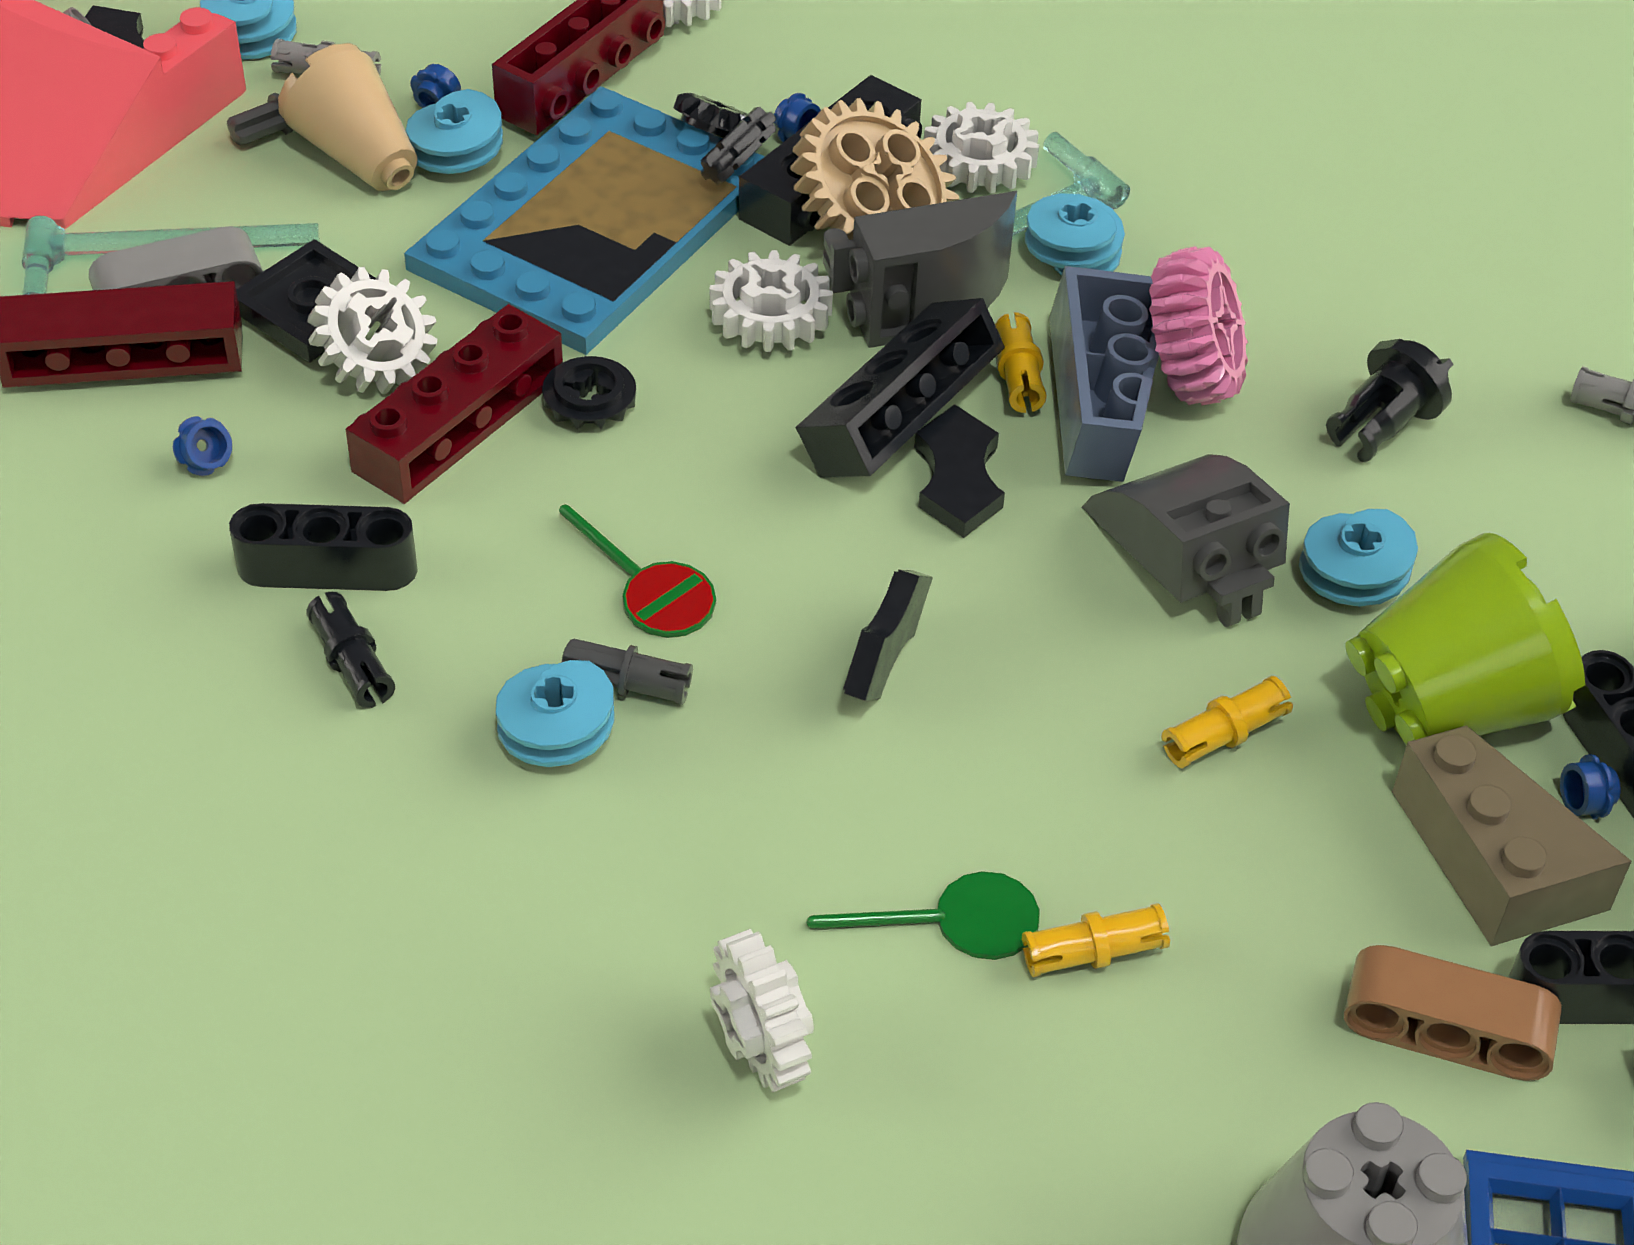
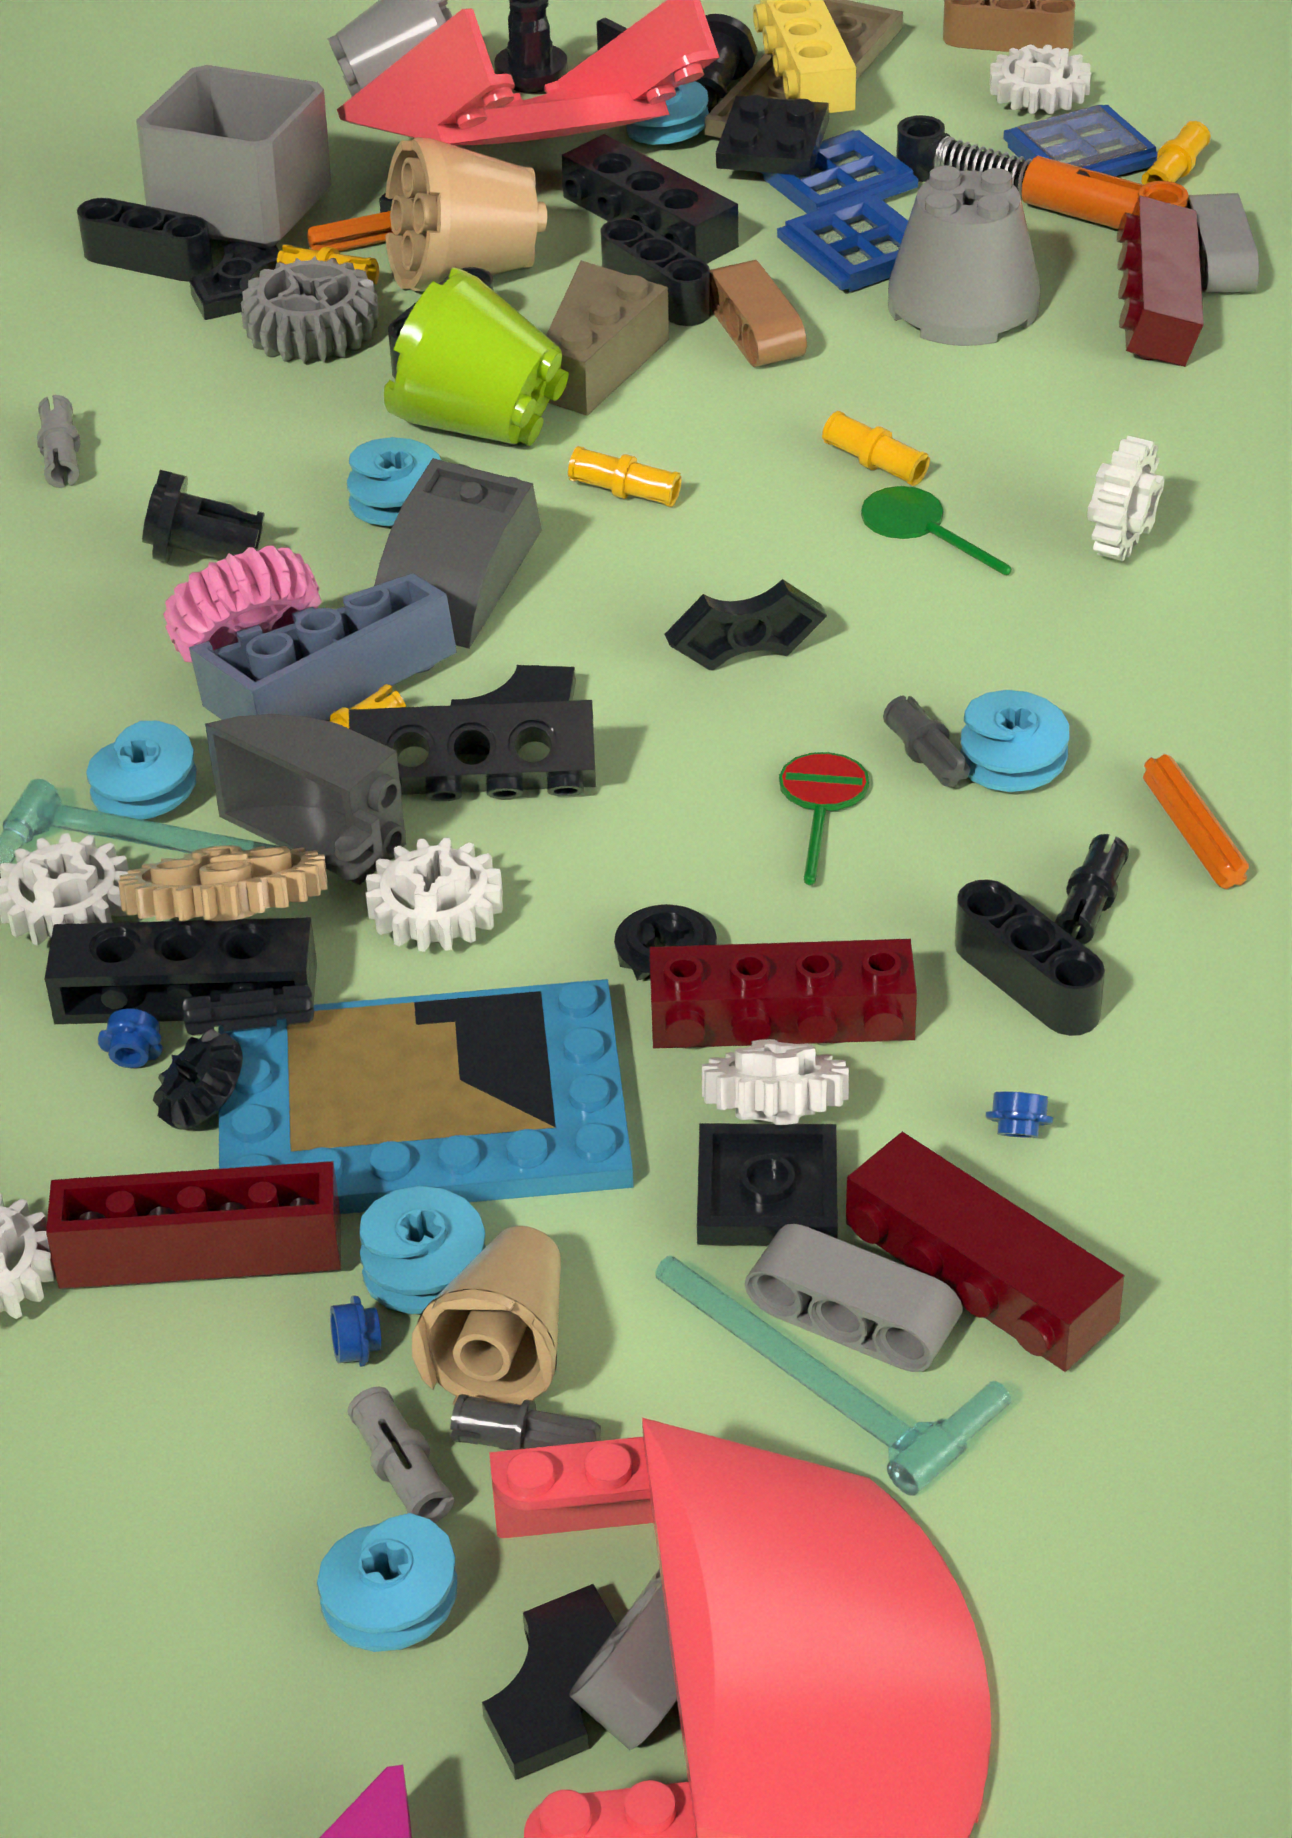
camera: 125 degrees left, 5 degrees down
(341, 774) = (1195, 821): none -> orange axle

